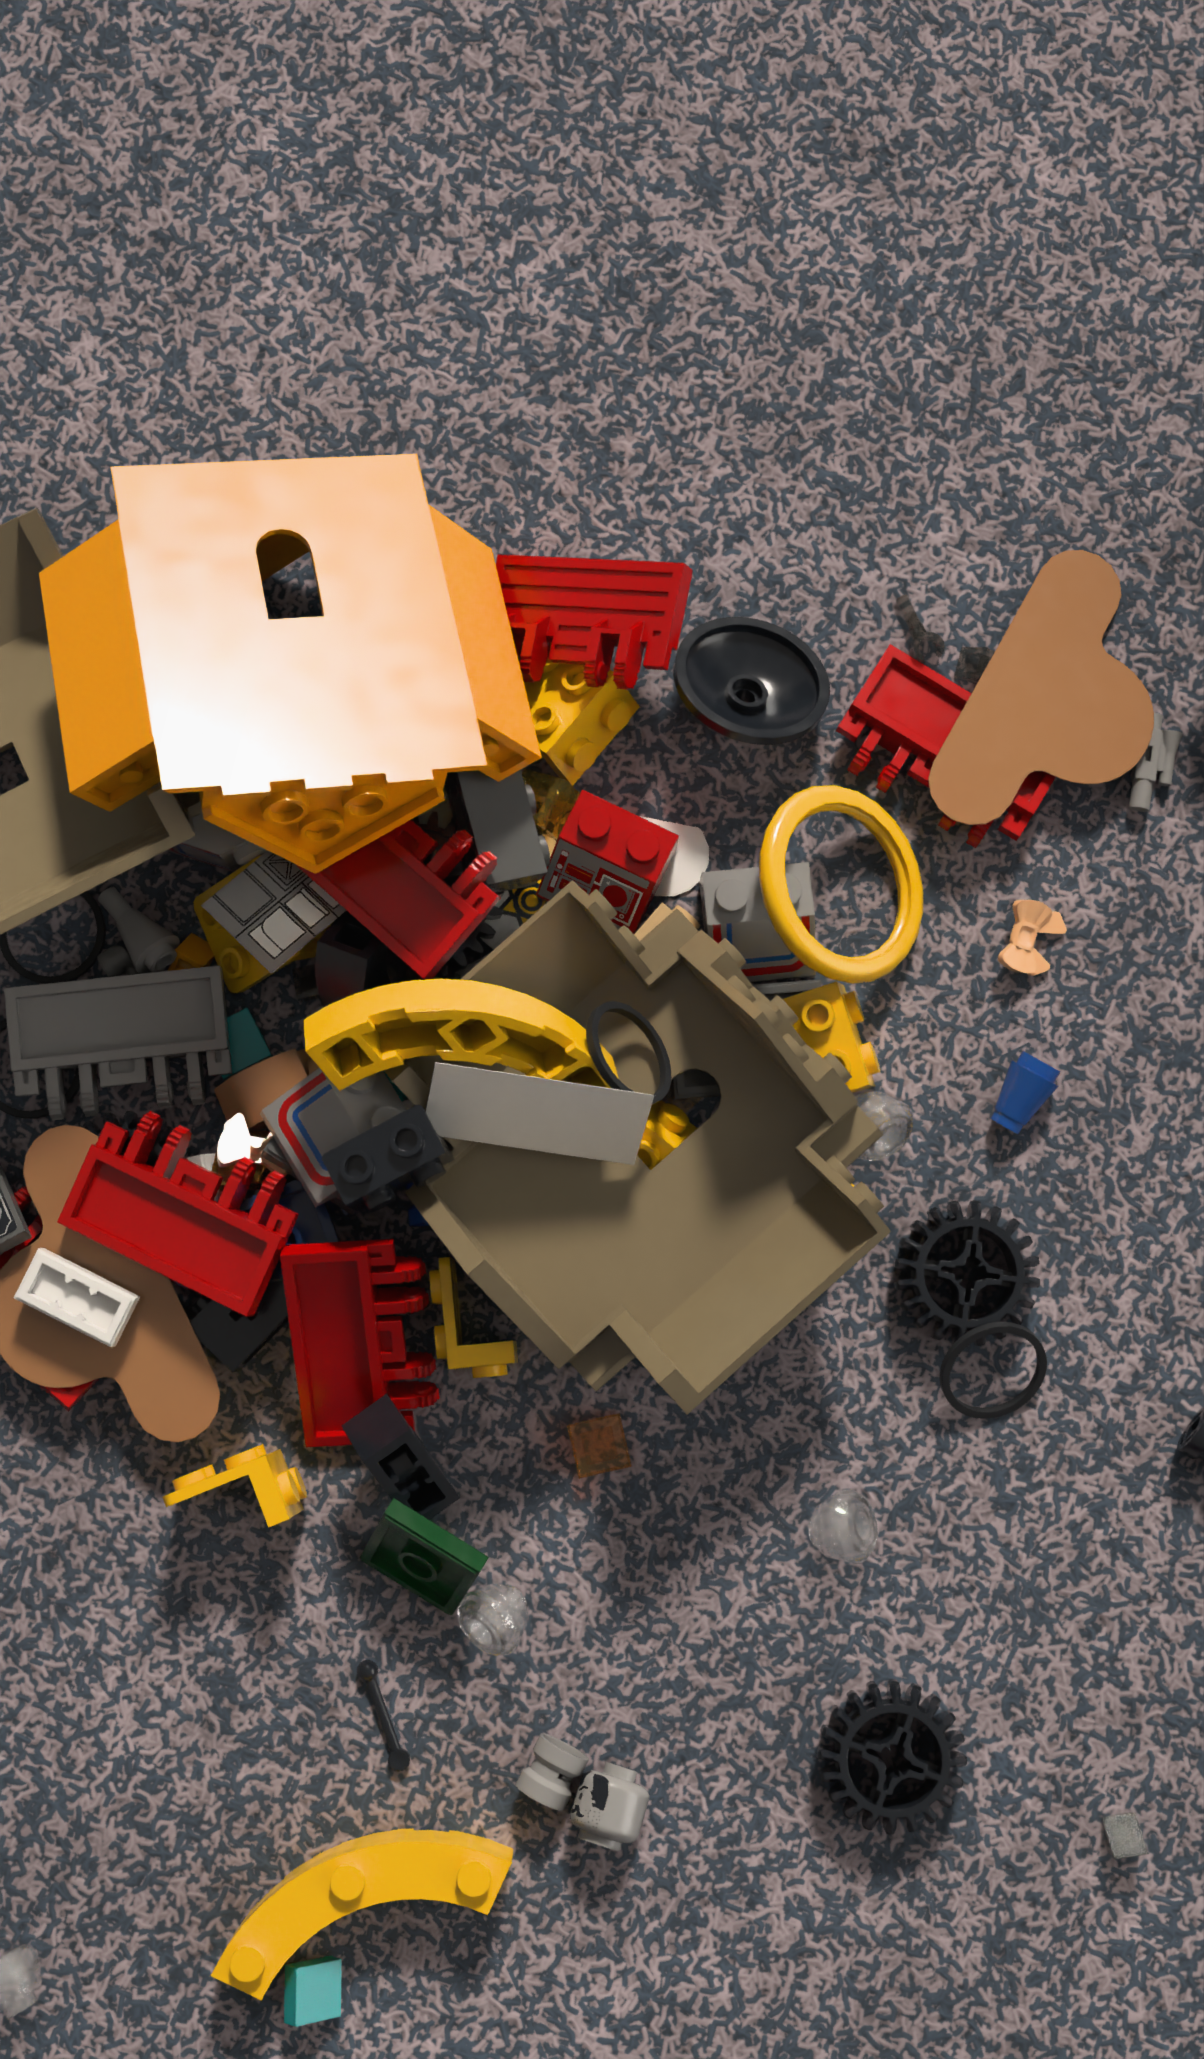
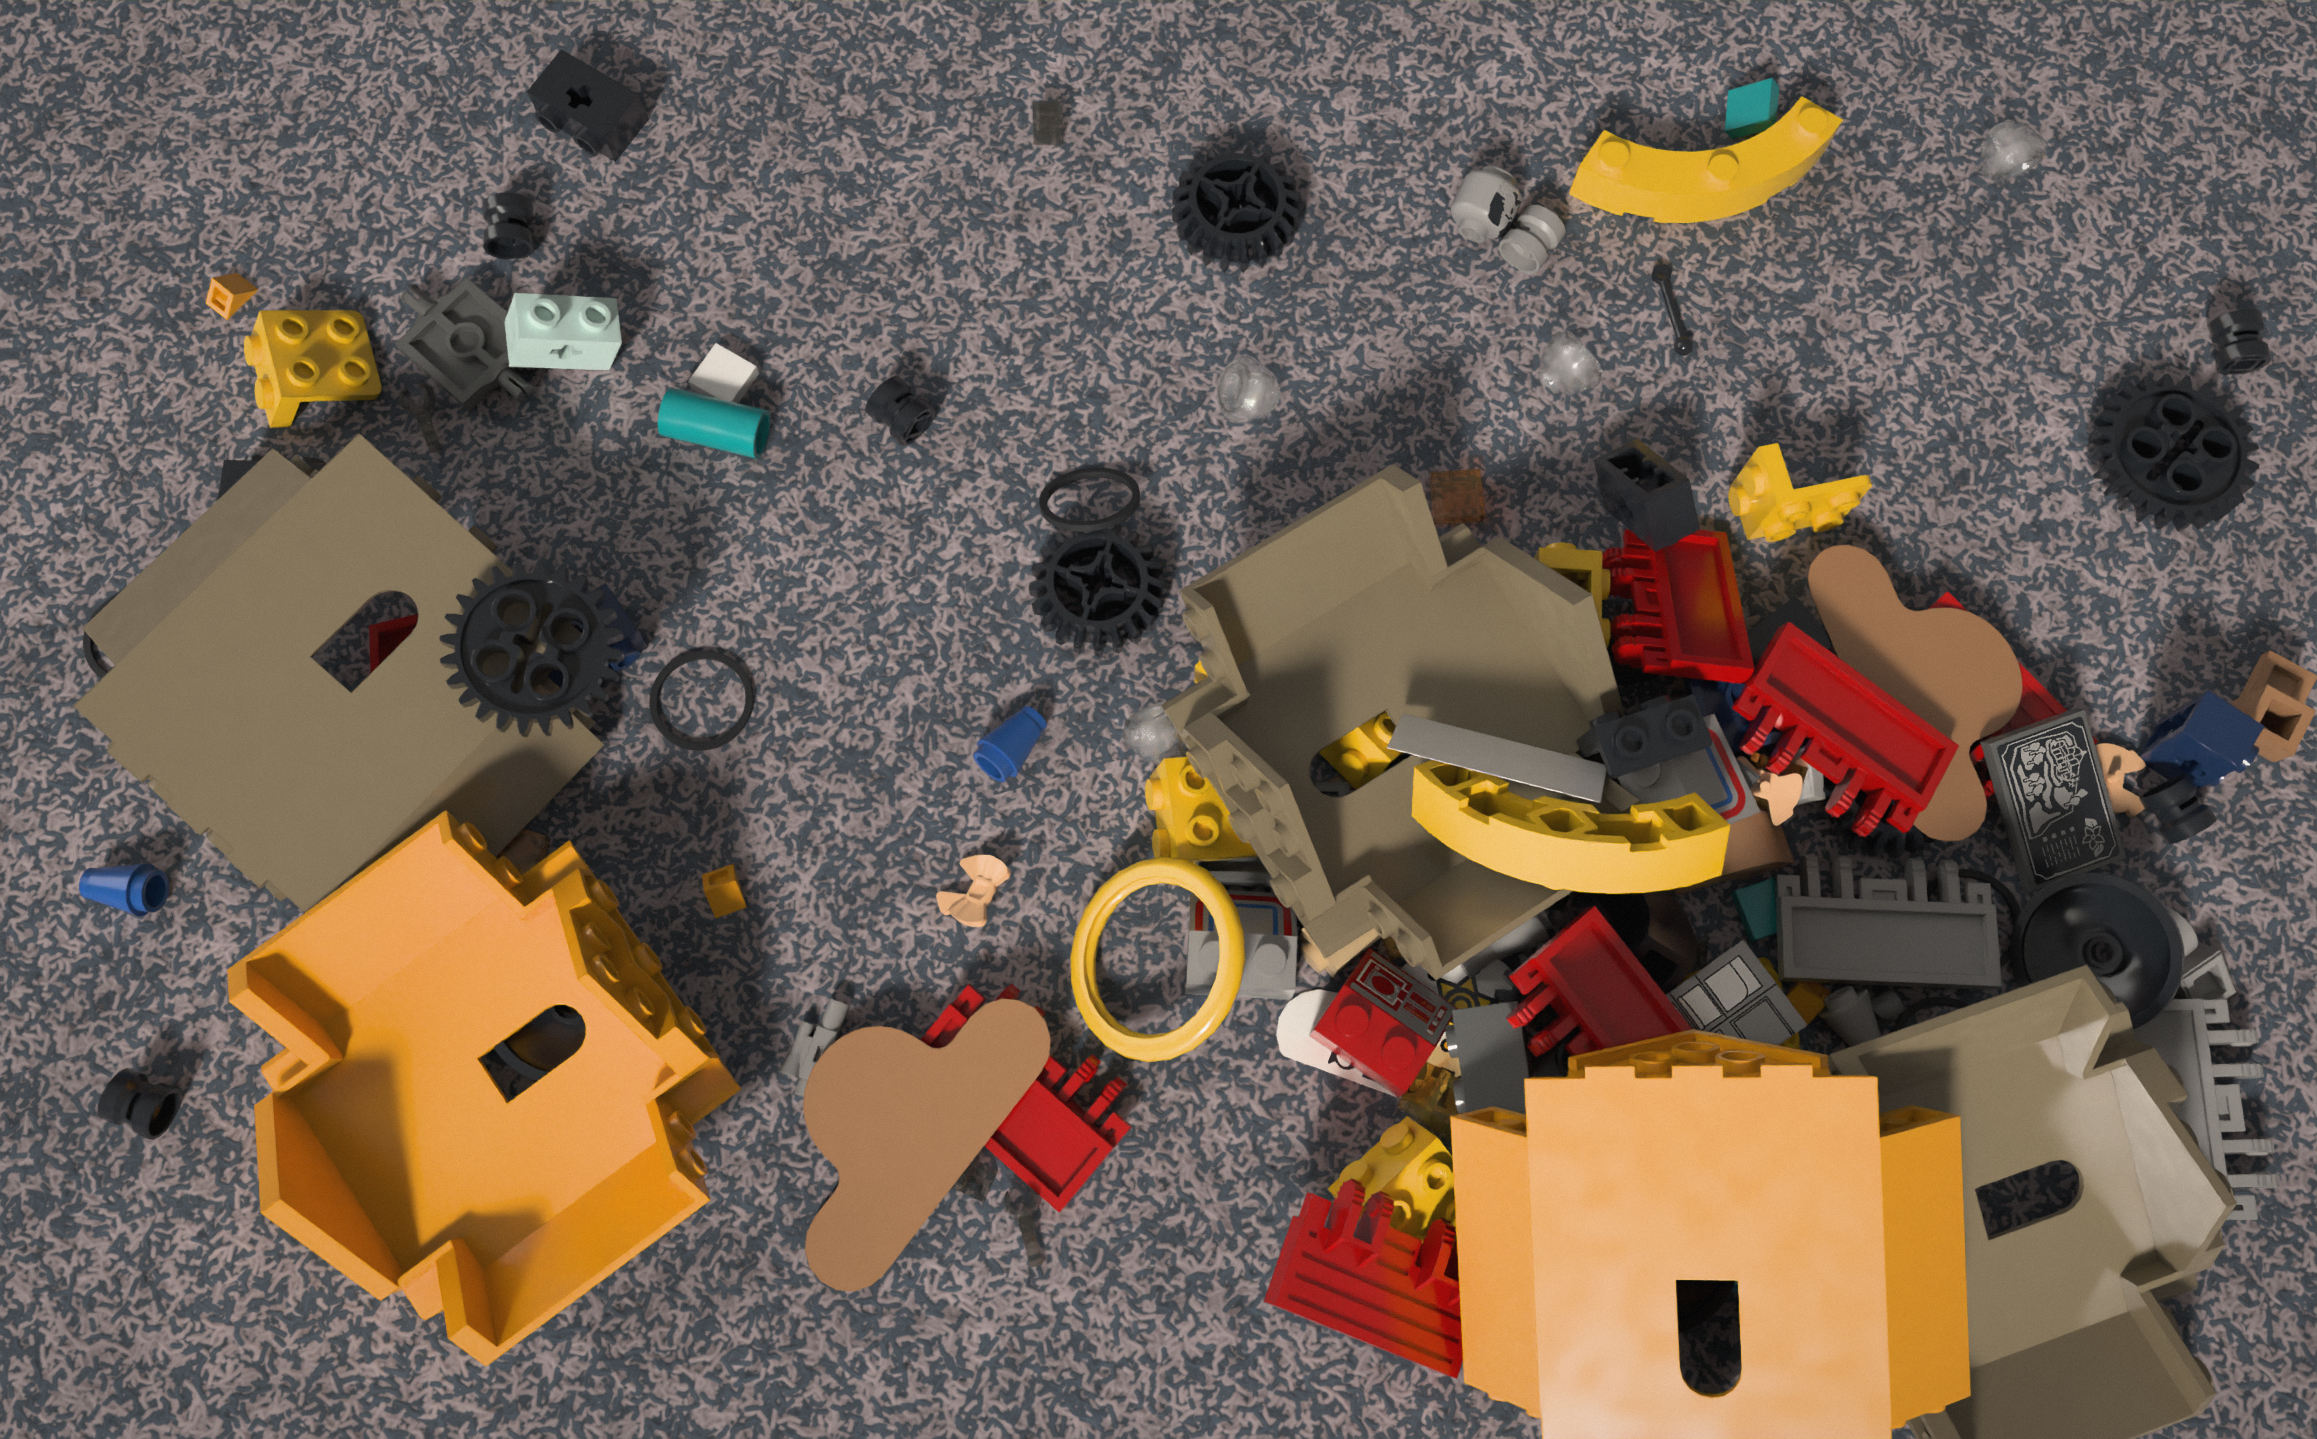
camera: 170 degrees left, 10 degrees down
(77, 1297) = (1941, 677): white plate -> none
(423, 1557) = (1631, 415): dark green tile -> none
(653, 1037) = (1438, 805): black piece -> none
(751, 680) = (1197, 1212): black dish -> none

